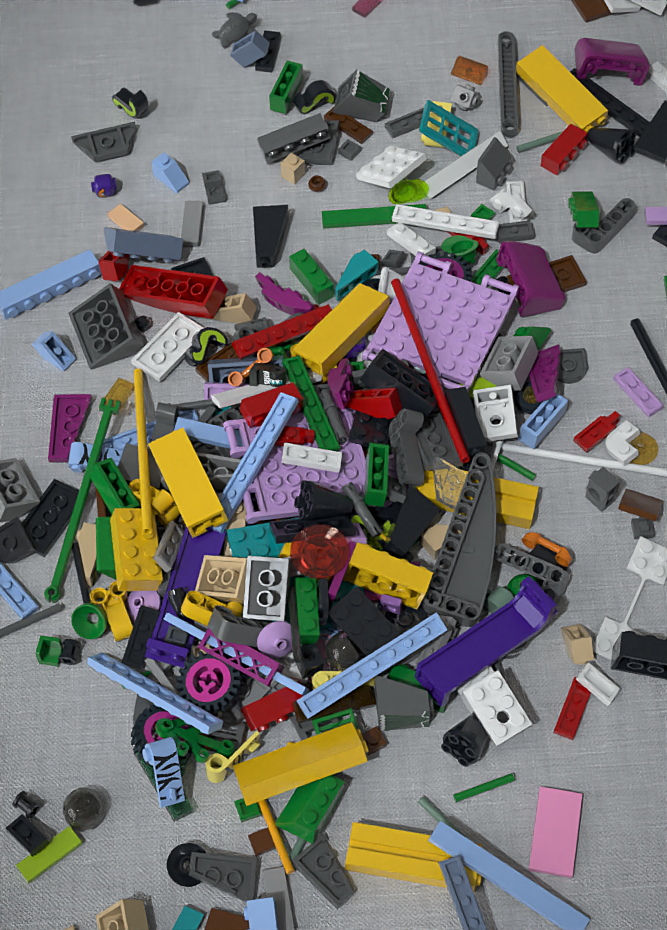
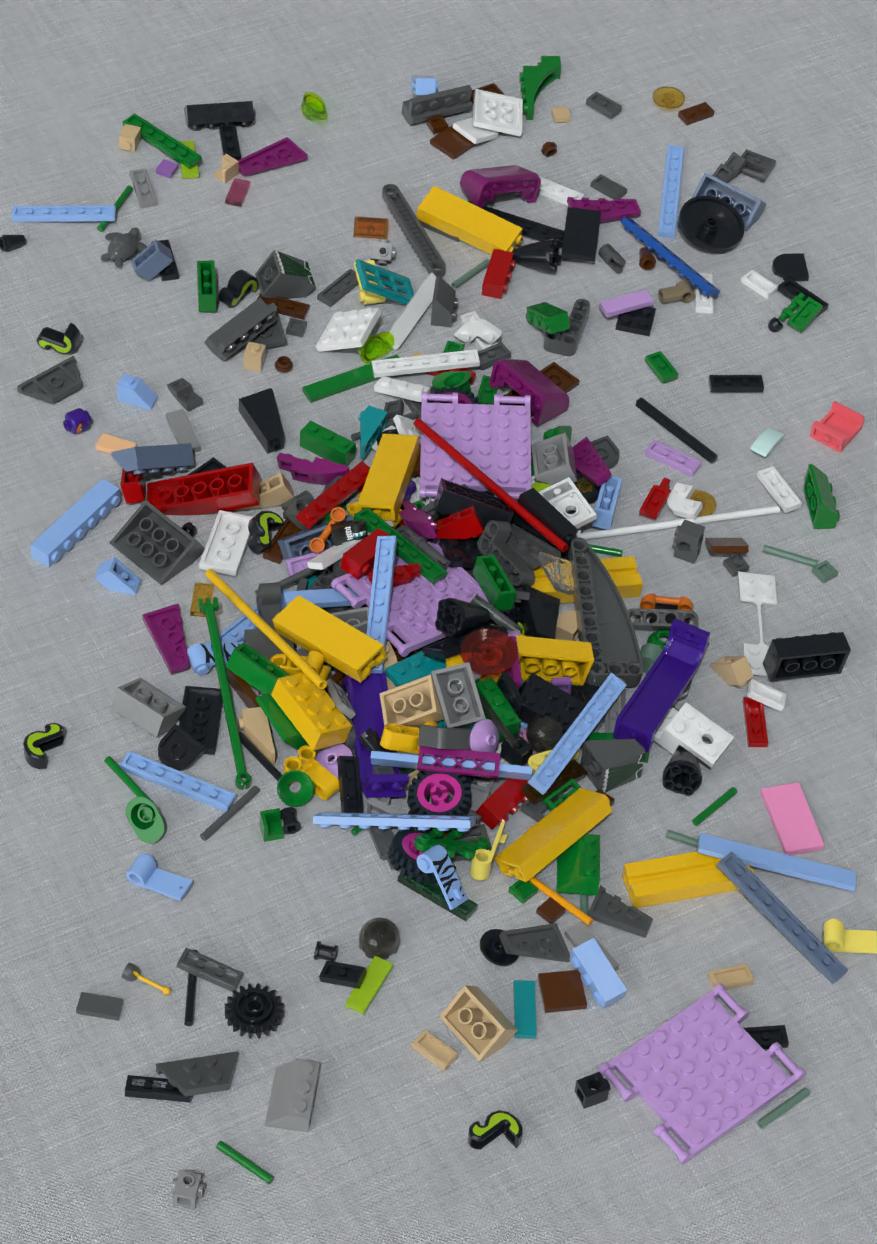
camera: 30 degrees left, 10 degrees down
(311, 457) = (428, 586): white plate -> none

